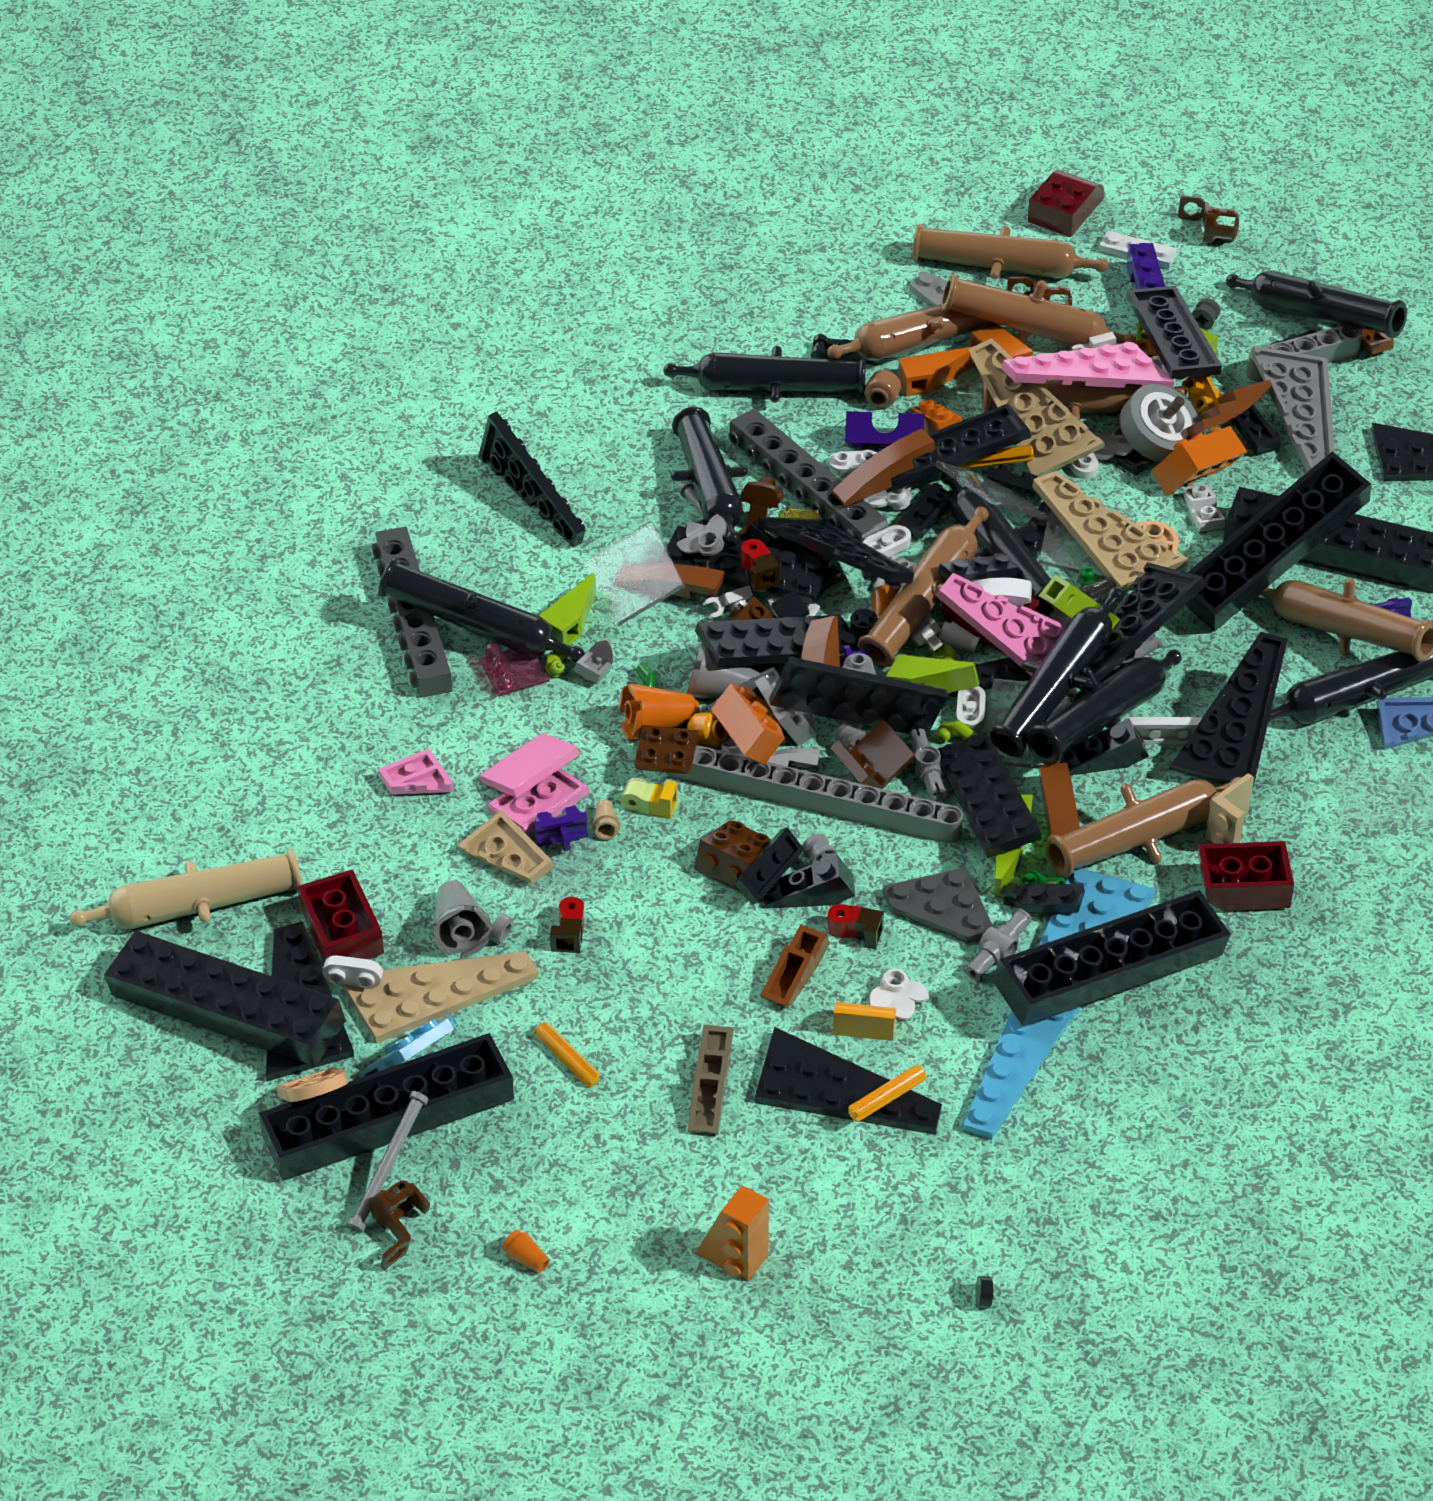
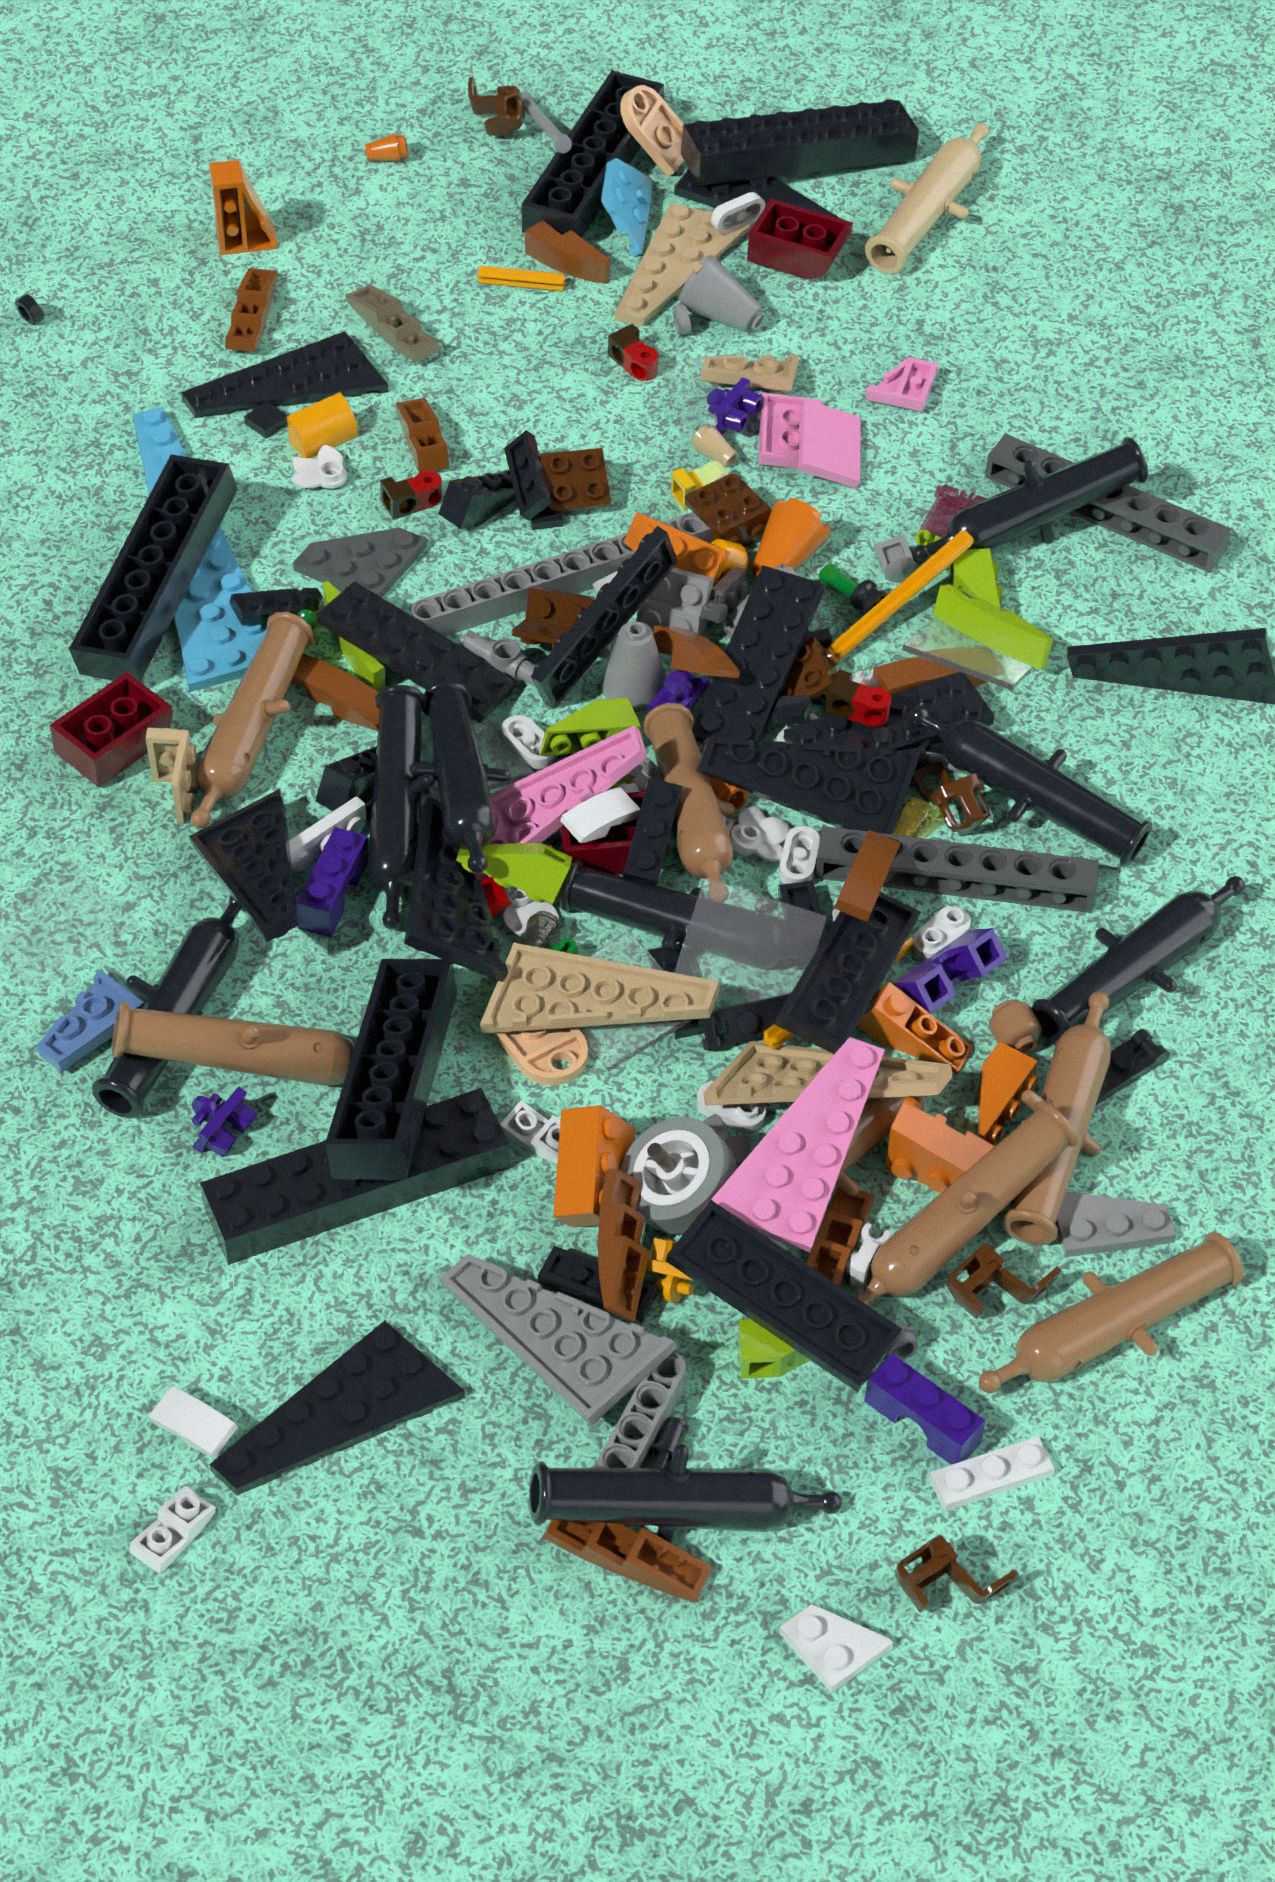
camera: 135 degrees right, 5 degrees up
(513, 1042) = (566, 253): none -> dark orange slope
(604, 580) = (993, 628): none -> lime slope
(624, 629) = (901, 594): none -> light orange axle
(646, 650) = (866, 596): none -> black wheel
(704, 538) = (942, 697): light grey plate -> none
(809, 1166) = (251, 309): none -> dark orange slope
(818, 848) = (509, 528): light grey wheel -> none
(887, 1093) = (238, 375): light orange axle -> none
(892, 1063) = (266, 419): none -> black tile
(953, 730) = (525, 706): lime arm -> none
(998, 944) = (276, 551): light grey pin -> none
(1064, 202) = (1150, 1473): dark red brick -> none
(1120, 313) = (905, 1344): none -> light grey plate
(1179, 695) = (323, 895): none -> dark purple arch
(1206, 313) = (804, 1412): dark grey wheel -> none
(1292, 240) = (833, 1645): none -> white wing

